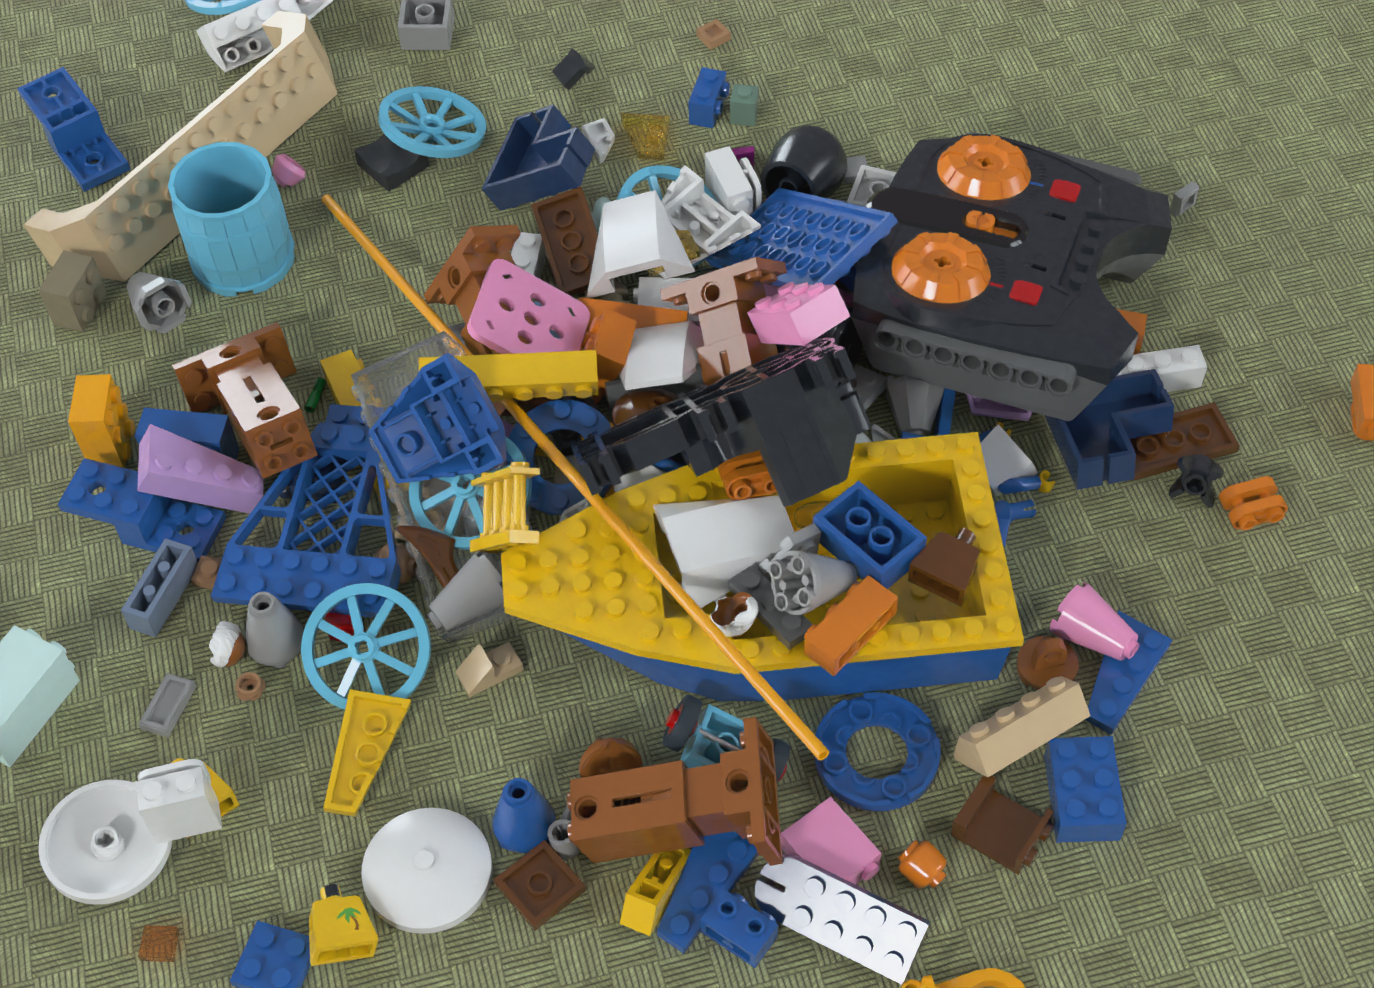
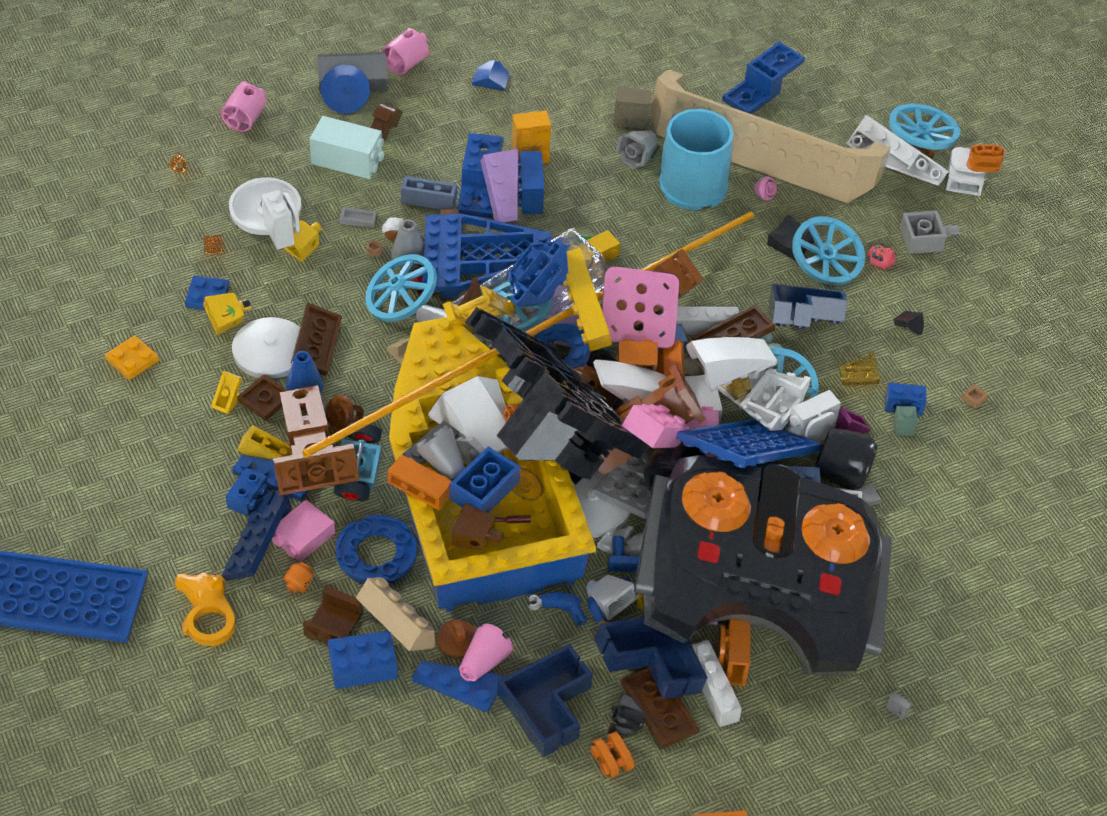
camera: 75 degrees right, 5 degrees down
(249, 387) = (555, 200): dark orange brick -> none
(363, 742) = (348, 302): yellow wing -> none
(435, 790) = (318, 336): none -> reddish brown plate
(452, 73) = (882, 256): none -> coral head
(523, 941) = (227, 392): none -> yellow slope
(600, 137) = (852, 347): white tile -> none
(735, 613) = (417, 424): hair -> none
(1164, 574) = (538, 697): none -> dark blue piece

